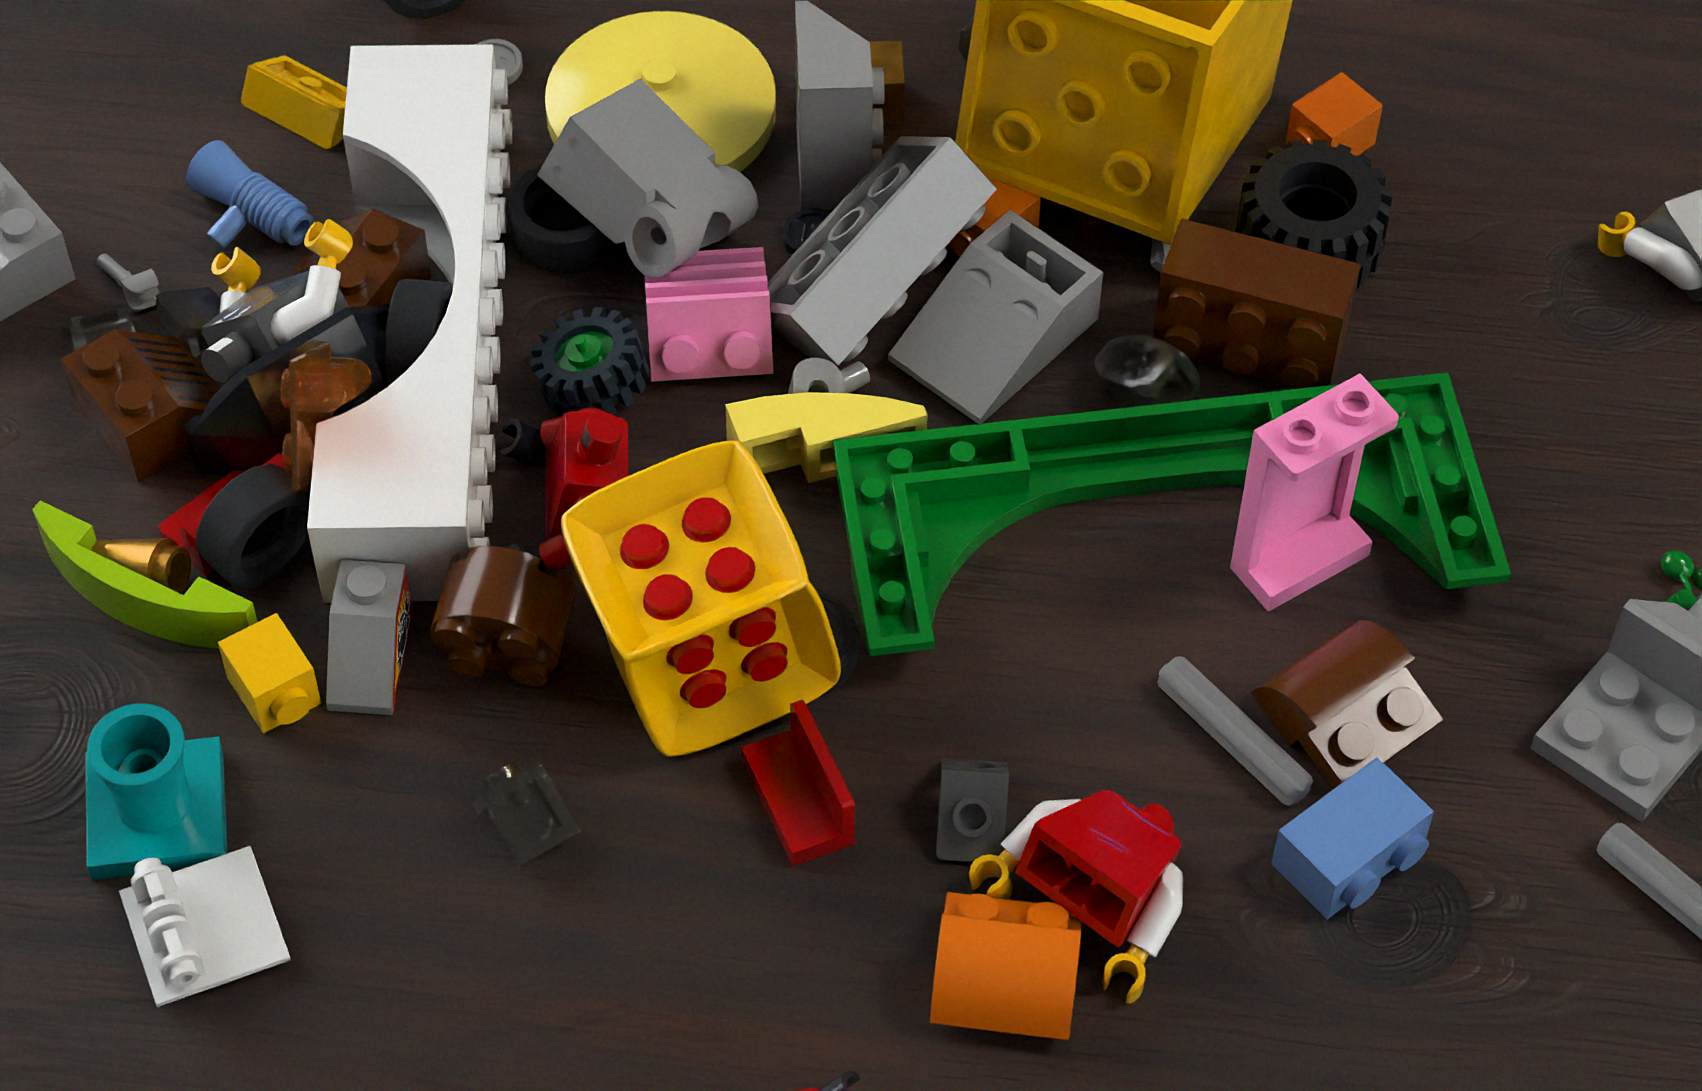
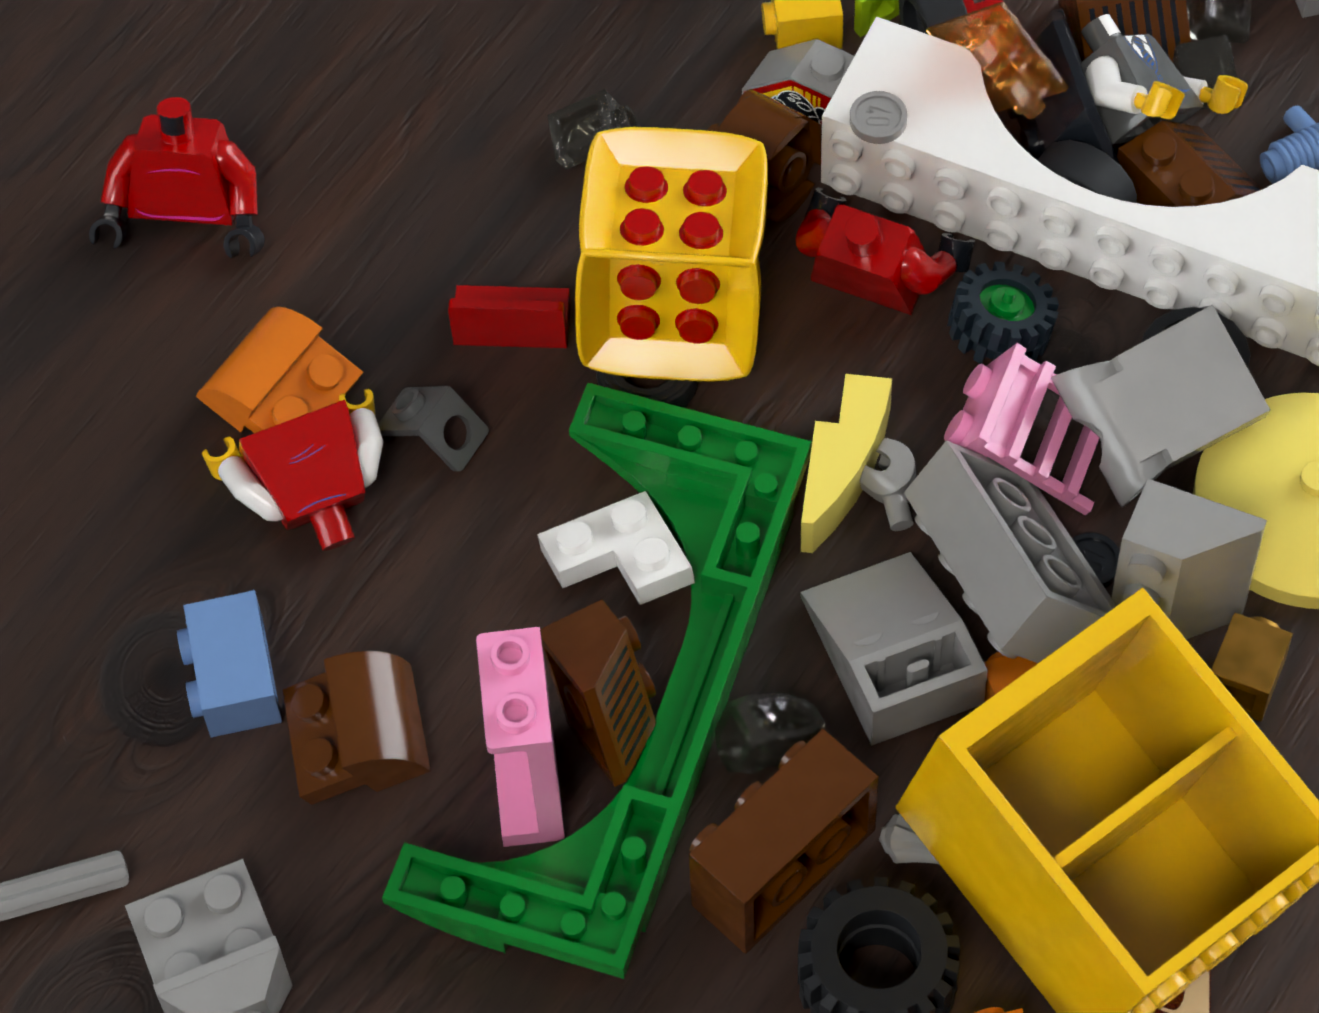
camera: 120 degrees right, 5 degrees up
(137, 288) = (1258, 45): light grey hand -> none
(448, 472) = (878, 117): none -> light grey piece
(1006, 577) = (620, 536): none -> white plate
(1198, 482) = (601, 685): none -> reddish brown slope
(1235, 731) = (392, 637): light grey axle -> none

